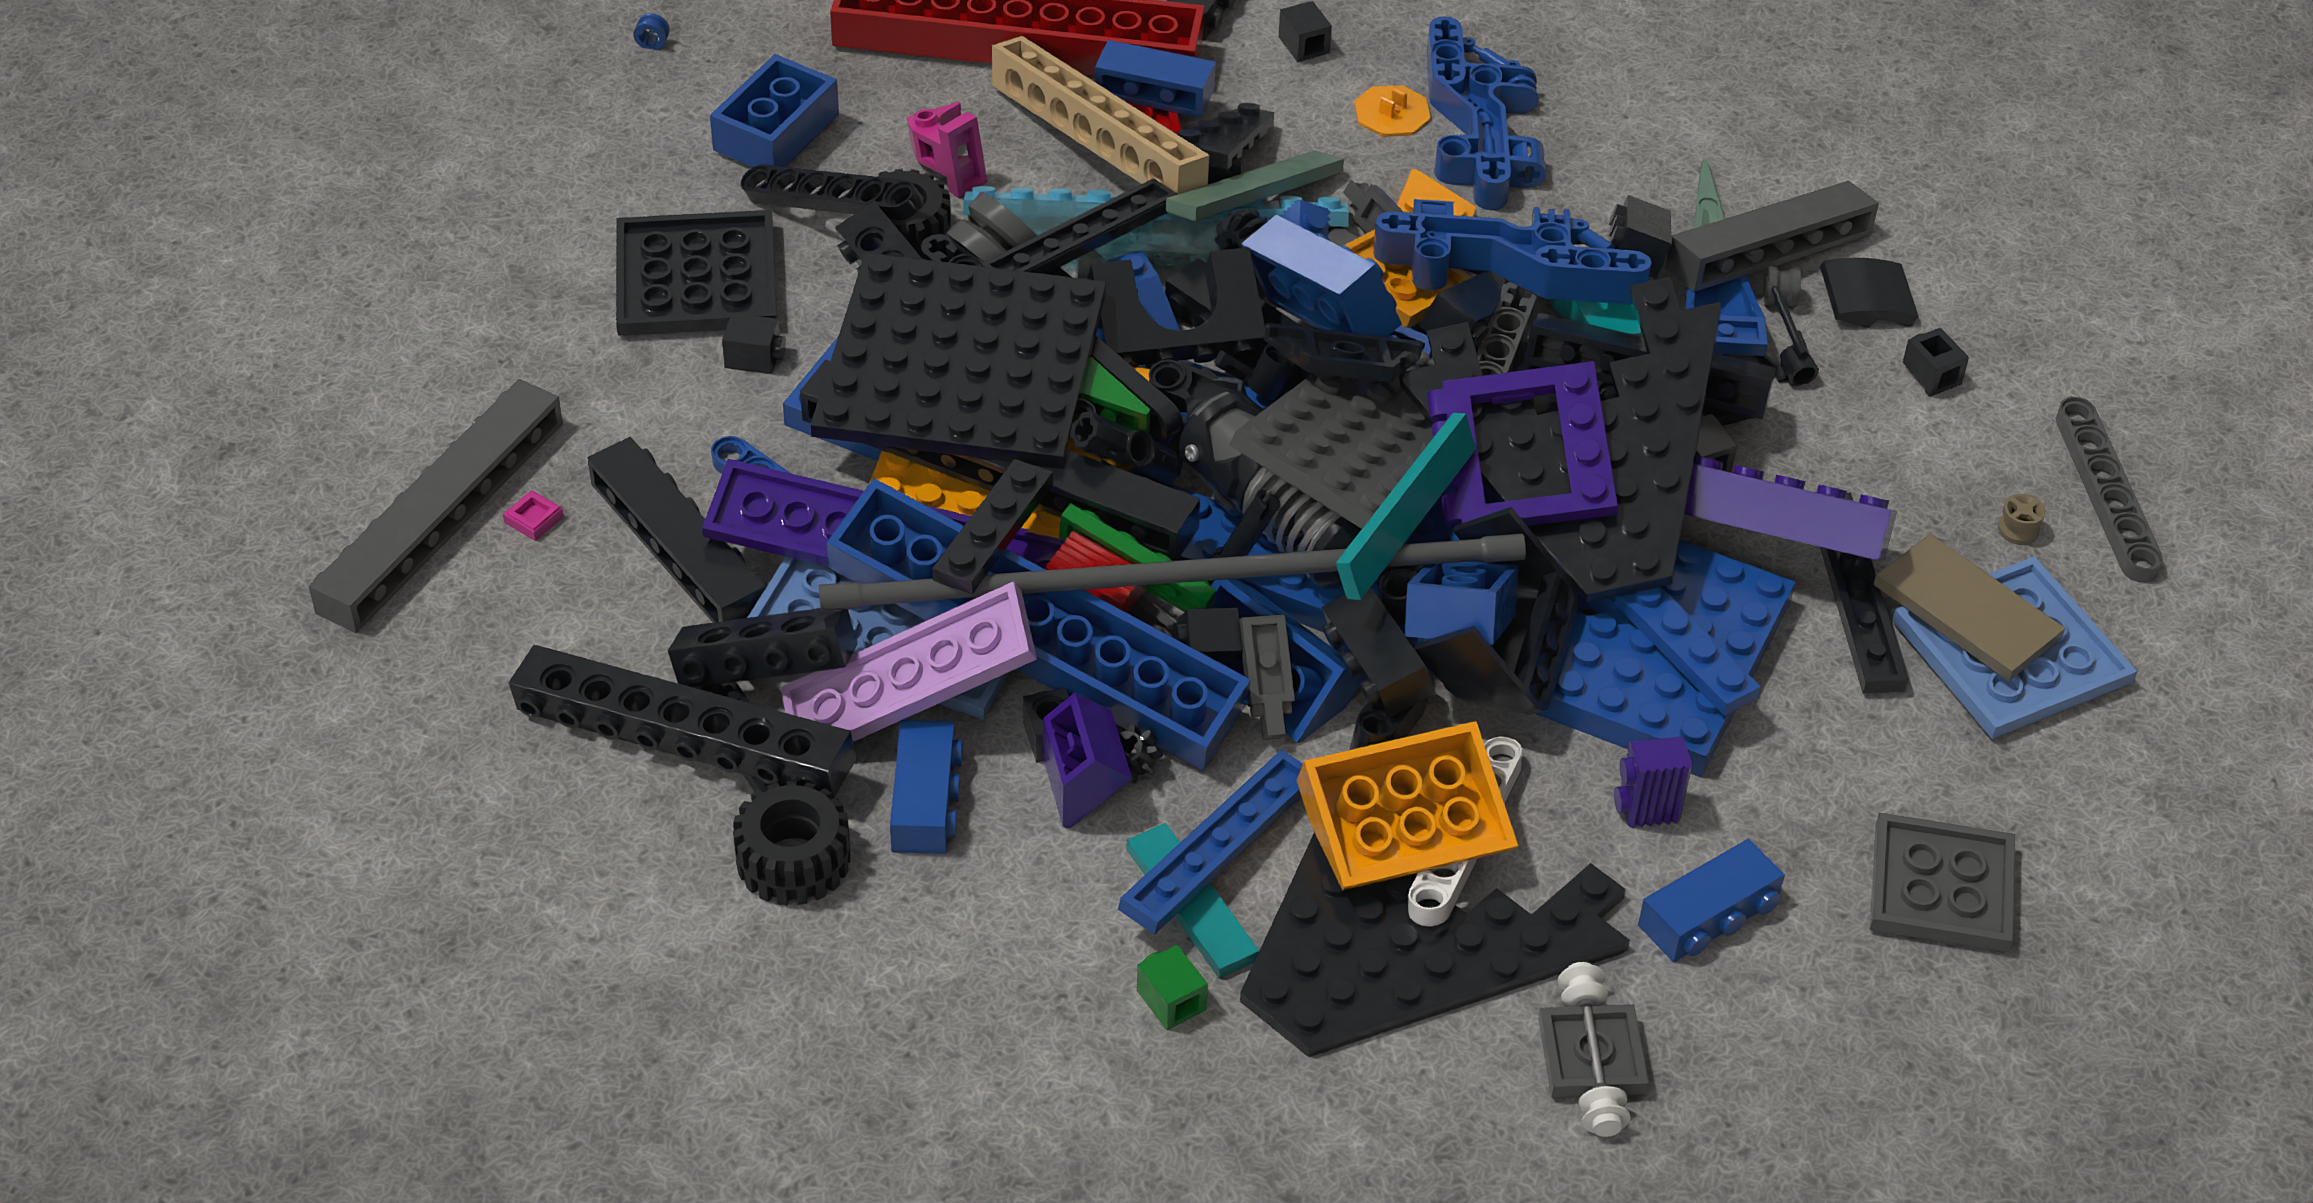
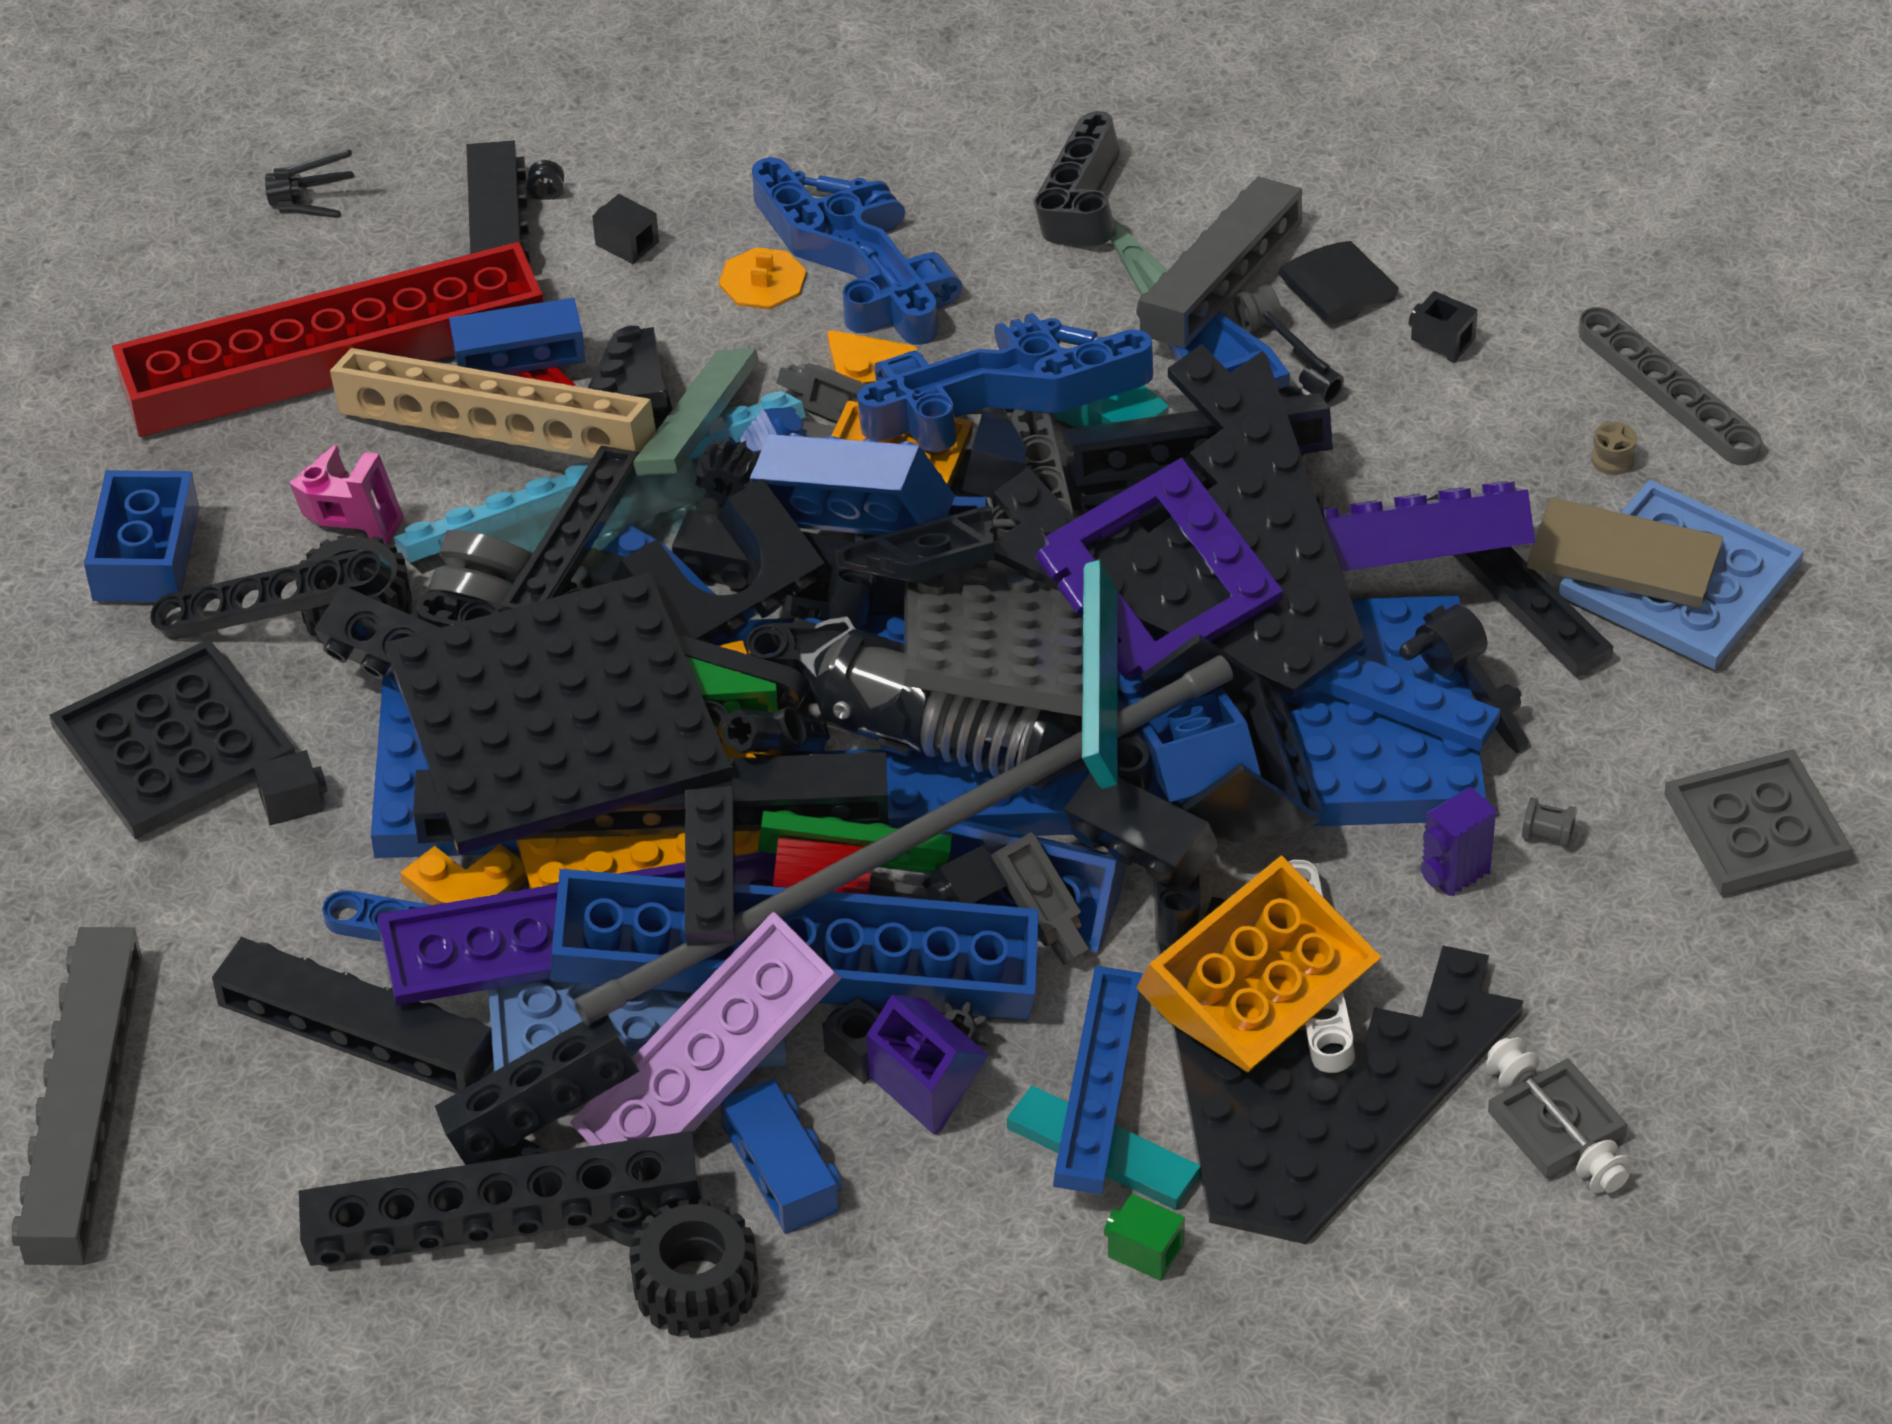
camera: 25 degrees left, 0 degrees up
(533, 515) = (183, 1062): dark pink tile -> none
(820, 461) = (443, 880): none -> light orange plate
(1249, 527) = (944, 766): black pin -> none
(1642, 229) = (1101, 305): black brick -> none
(1679, 142) = (1070, 198): none -> black beam
(1711, 901) = (1573, 931): blue brick -> none
(1753, 614) = (1452, 643): none -> black piece
(1753, 801) = (1549, 822): none -> dark grey bush

